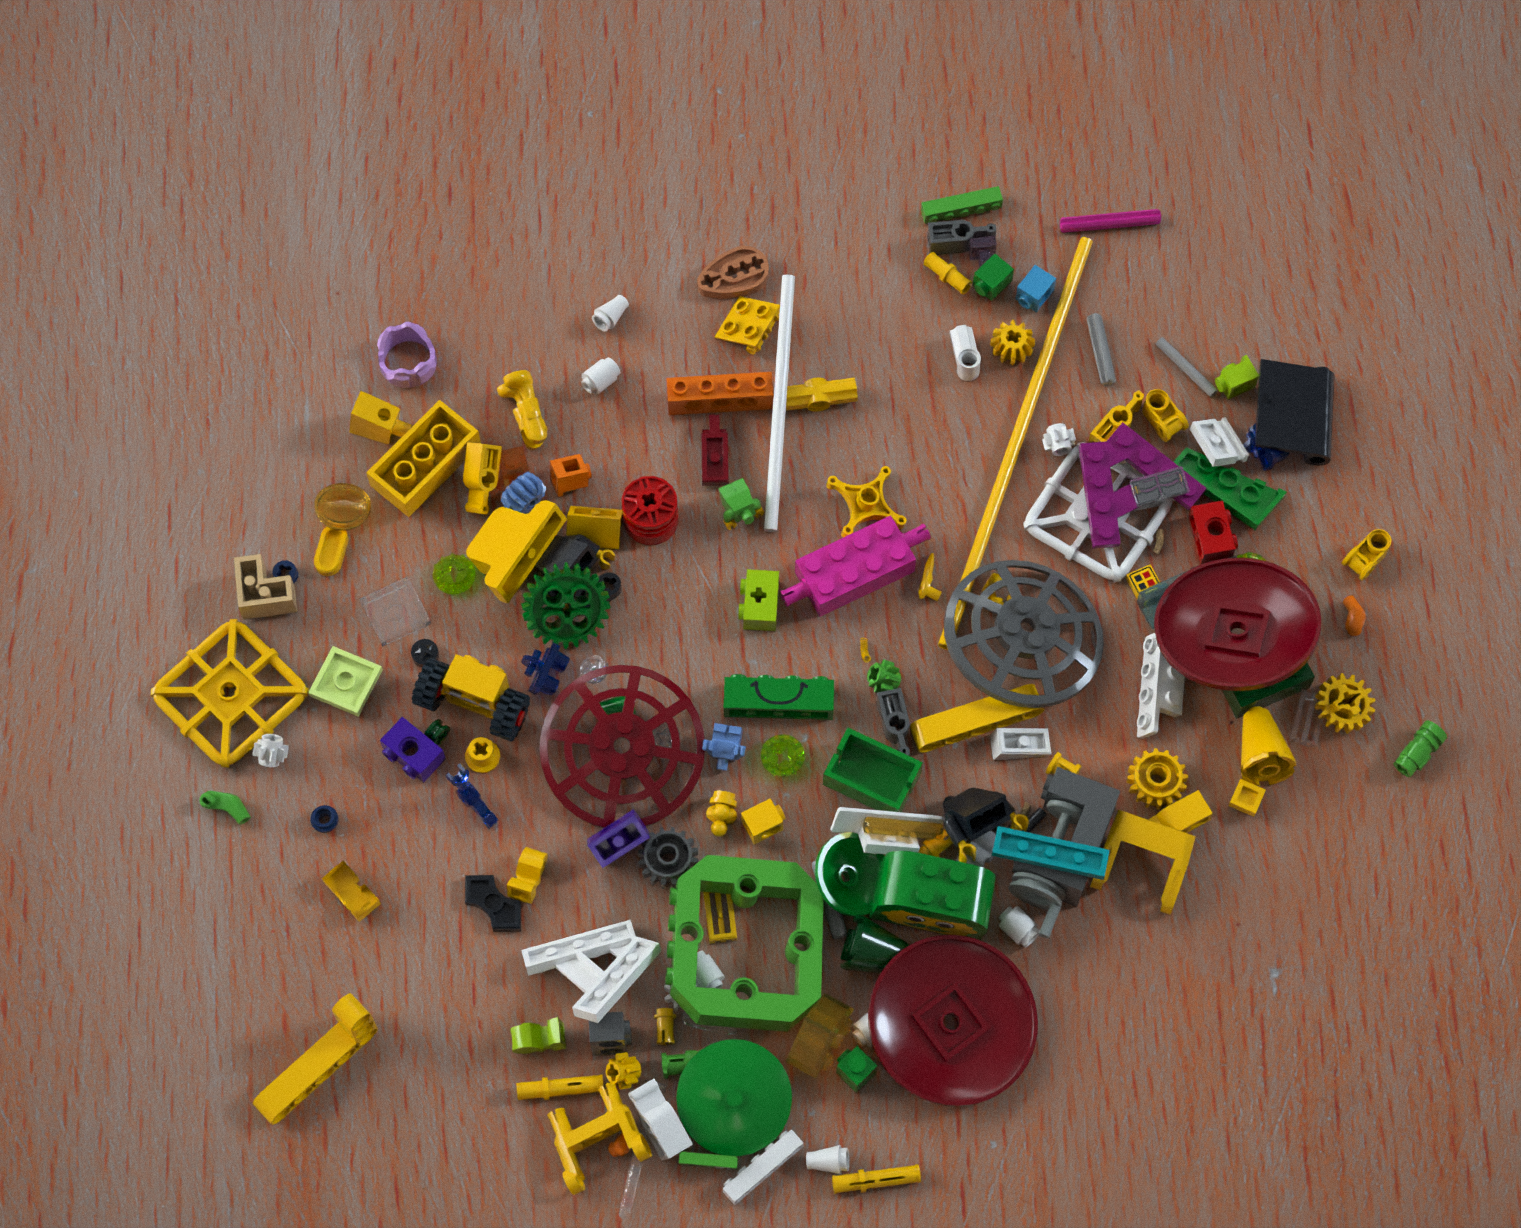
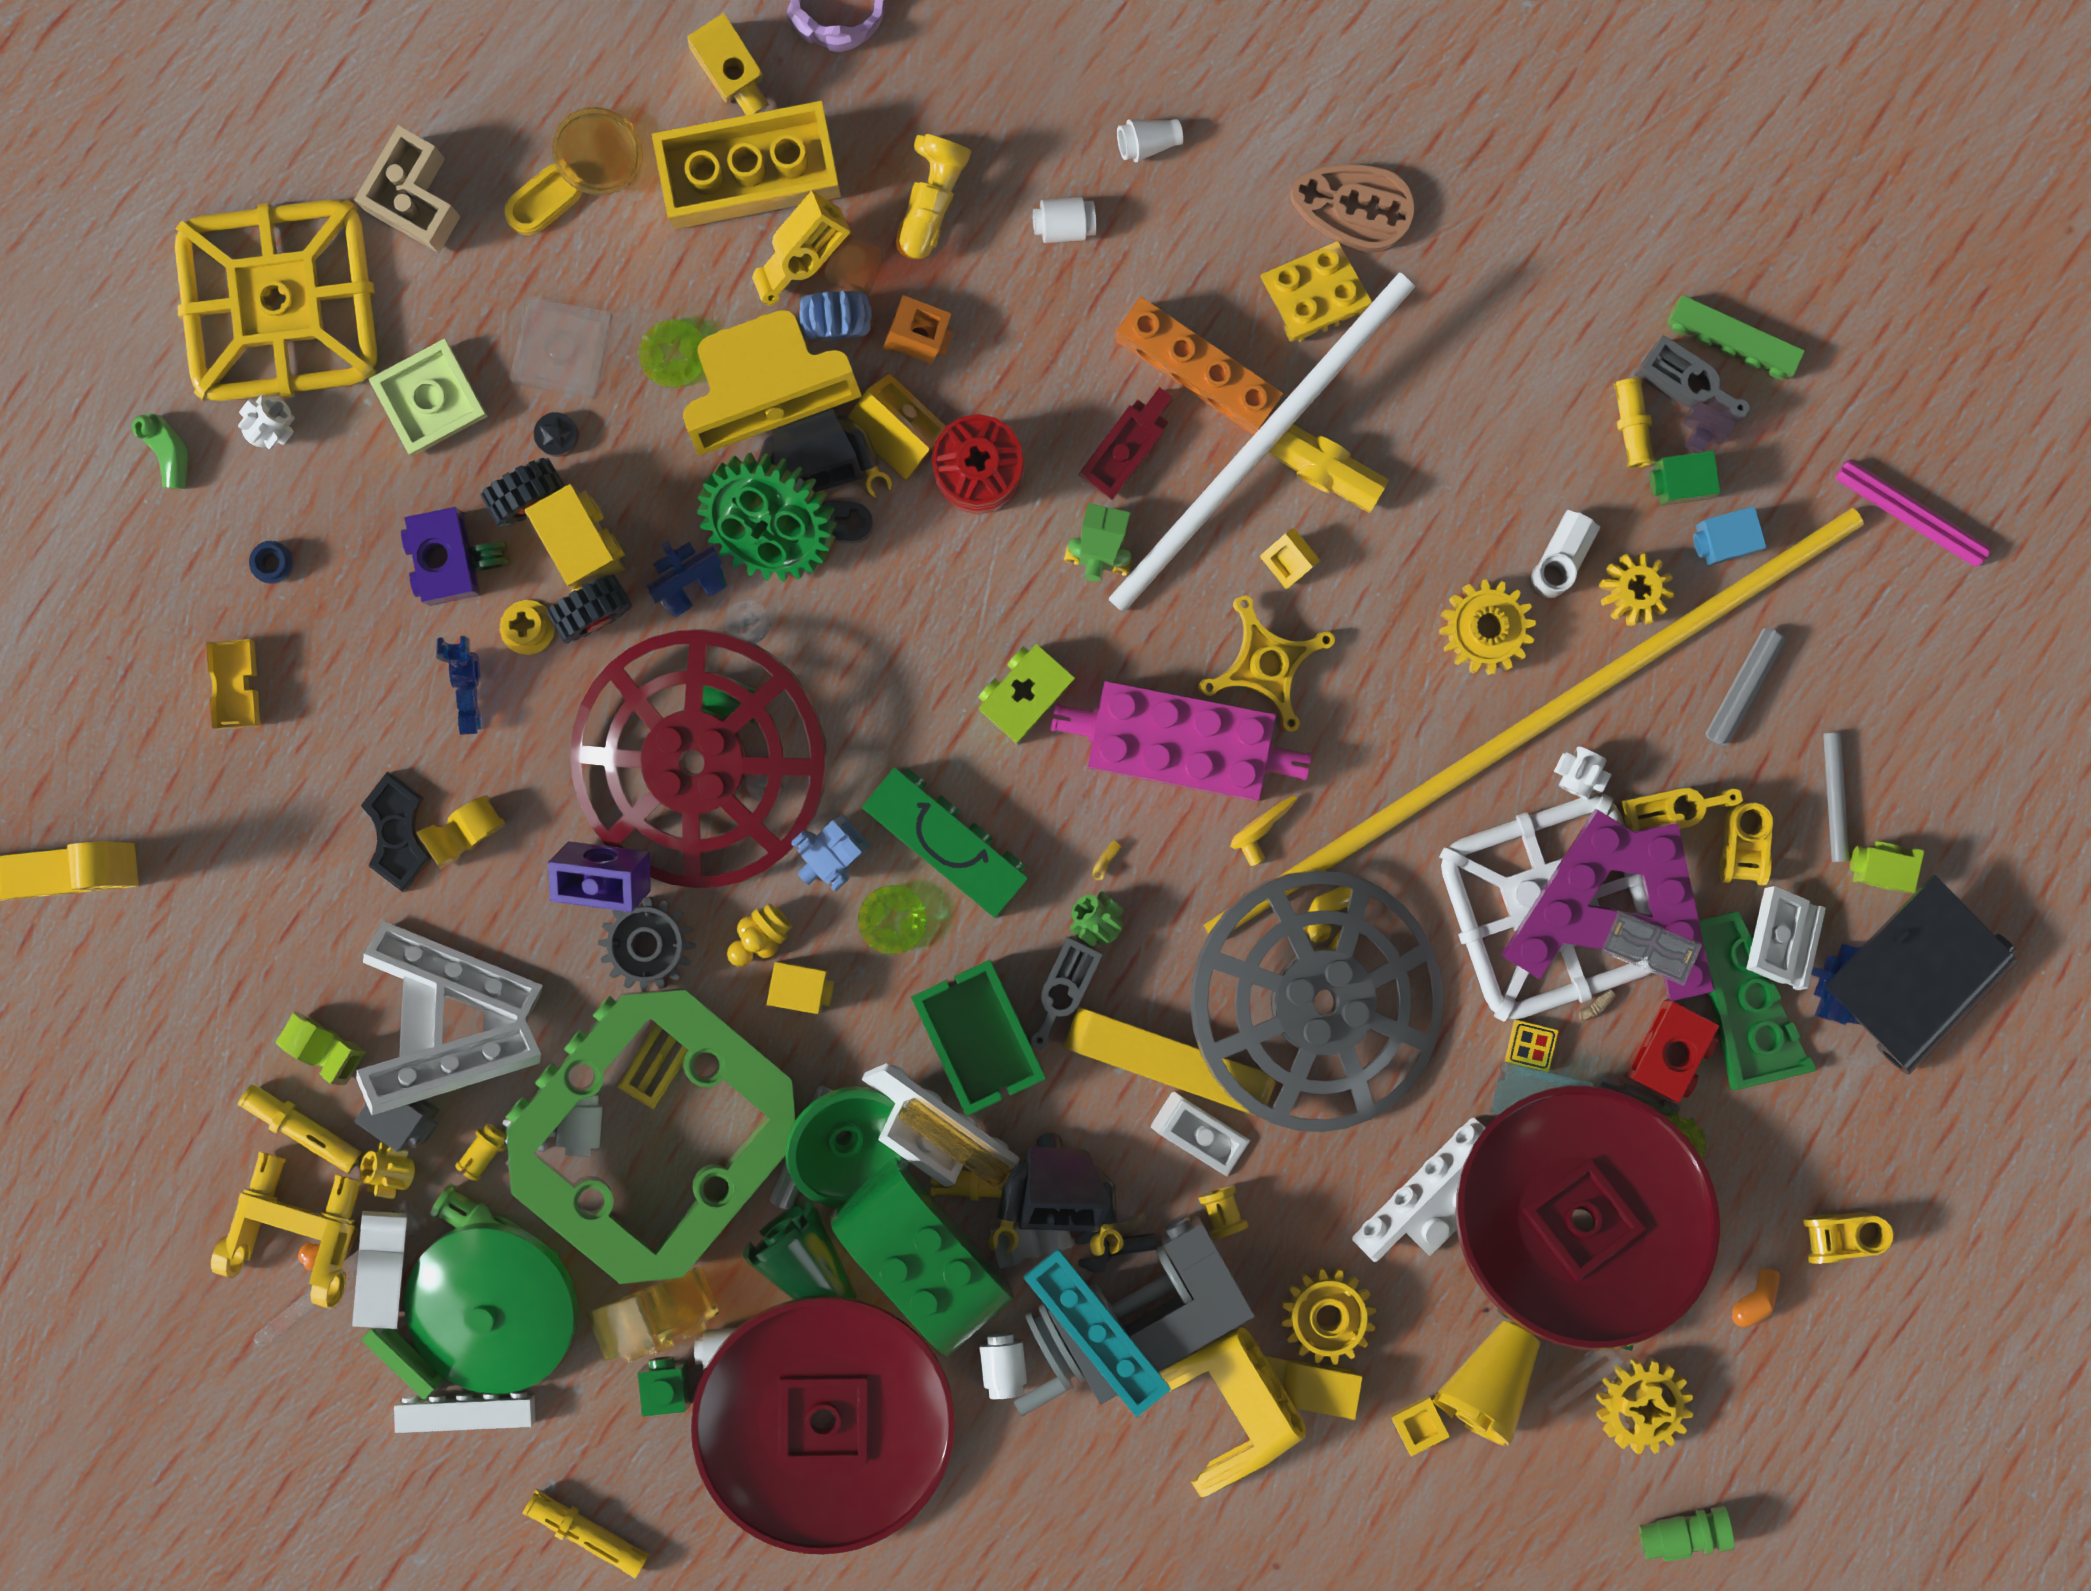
camera: 35 degrees right, 20 degrees up
(285, 564) = (454, 177): dark blue bush -> none
(829, 1160) = (548, 1468): white cone -> none
(837, 446) = (1290, 558): none -> yellow plate
(959, 397) = (1510, 624): none -> yellow gear

